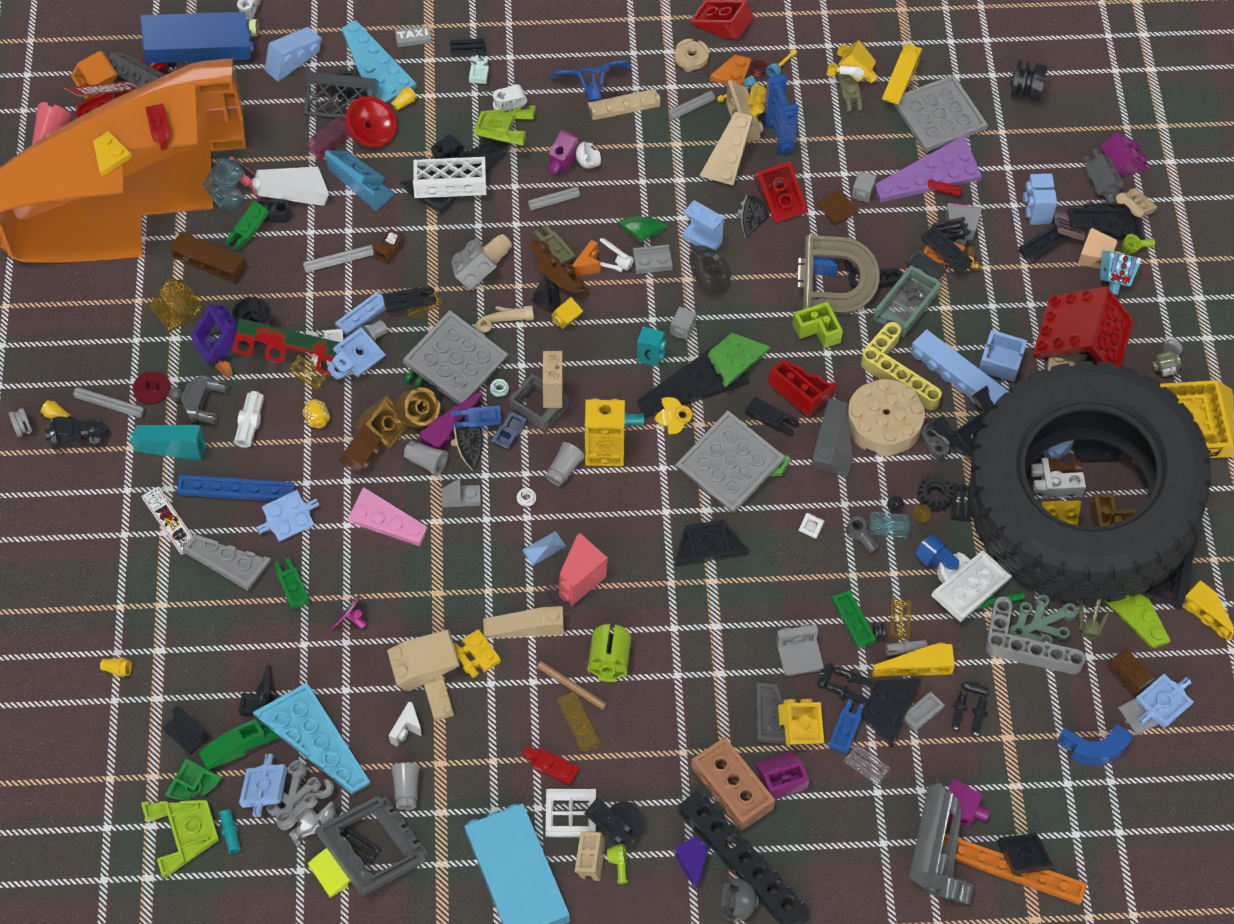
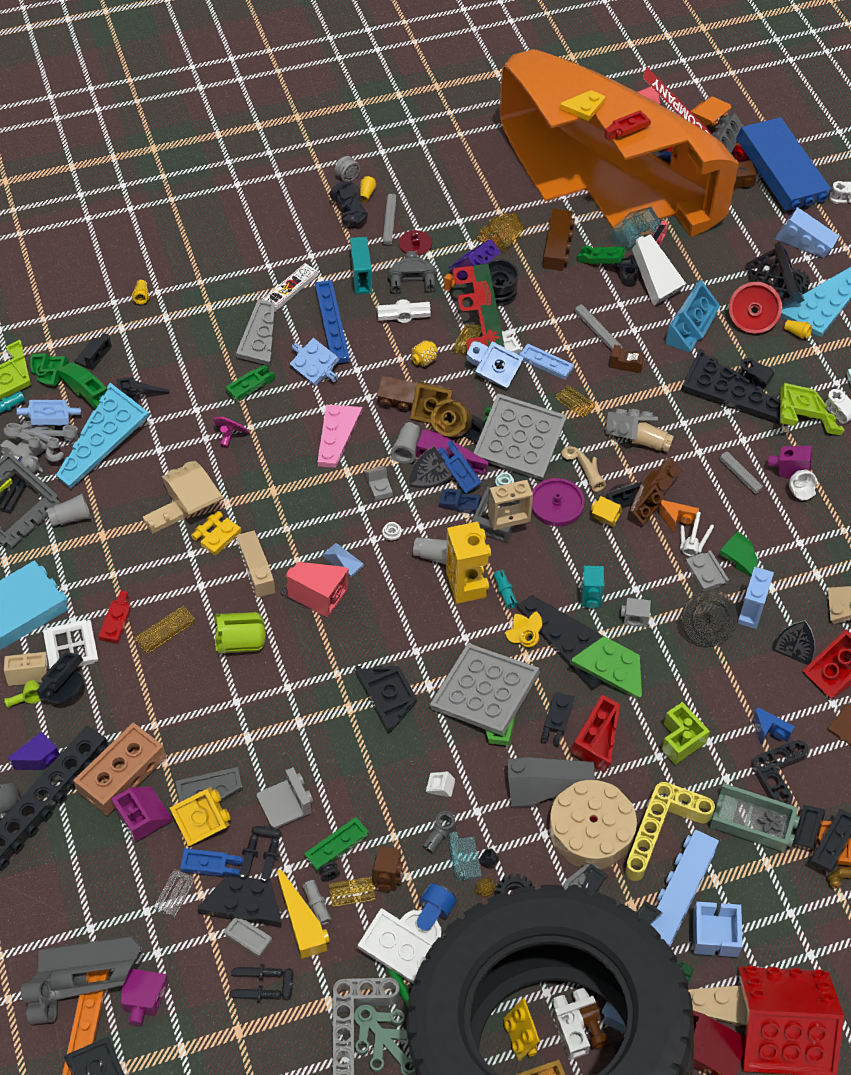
camera: 75 degrees right, 5 degrees down
(254, 27) = (821, 203): yellowish green tile -> none
(328, 138) = (722, 284): clear pink beam -> none
(375, 330) = (529, 373): light grey bush -> none
(406, 721) = (132, 497): white slope -> none
(408, 299) = (570, 385): black hinge -> none
(450, 185) = (709, 382): white fence -> none
(528, 349) = (557, 502): none -> magenta piece
(555, 244) = (683, 485): olive hinge -> none
(572, 685) = (202, 616): medium nougat bar -> none
(838, 248) = (768, 767): dark tan piece -> none
(894, 580) = (388, 869): none -> reddish brown brick

